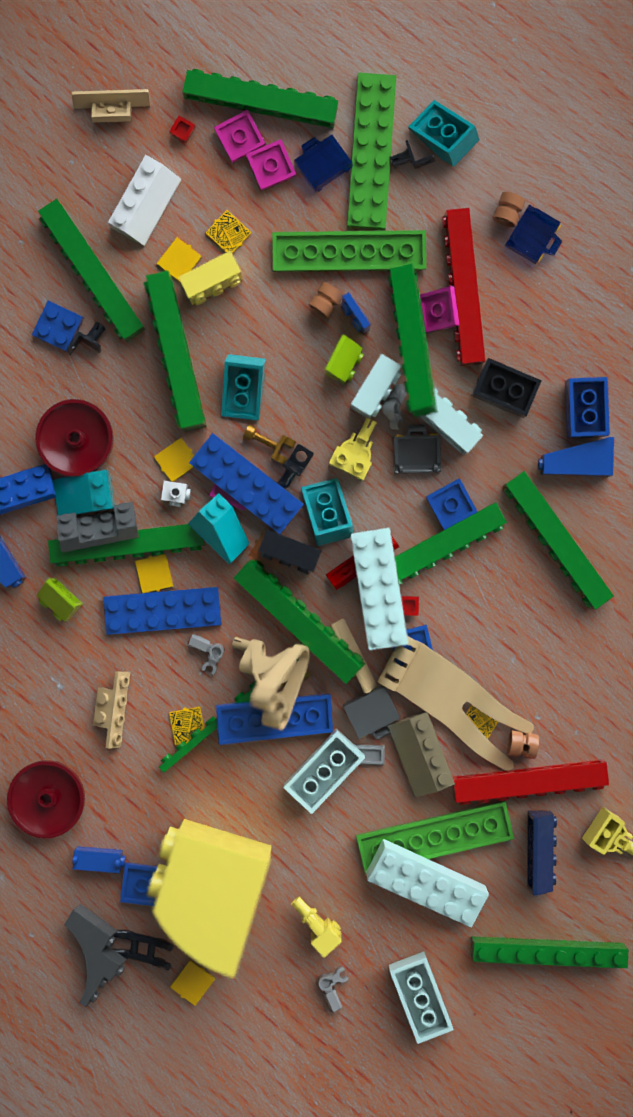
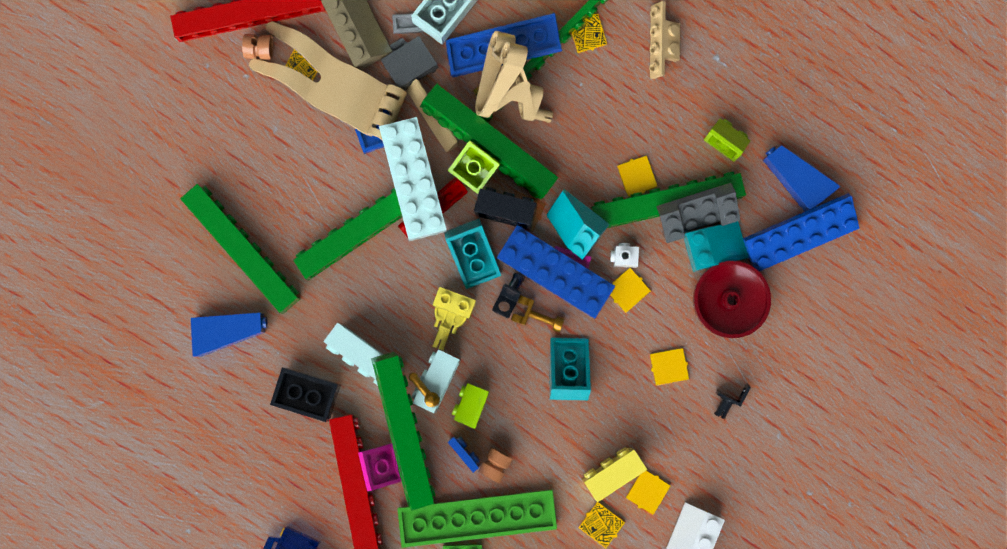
camera: 175 degrees right, 5 degrees down
(57, 325) = (762, 411): blue plate -> none
(90, 268) = (735, 471): green brick -> none
(144, 379) = (669, 366): none -> yellow piece
(162, 610) = (625, 140): blue plate -> none
(176, 351) = (640, 396): green brick -> none
(215, 651) = (569, 107): light grey bar -> none
(317, 596) = (474, 167): none -> lime slope
(382, 367) = (431, 399): none -> pearl gold piece
(392, 407) = (418, 362): light grey bar -> none
(410, 605) = (381, 170): red plate -> none
(417, 453) = (389, 321): dark grey piece -> none
(451, 504) = (349, 274): blue plate -> none
(587, 407) = (222, 383): blue brick -> none

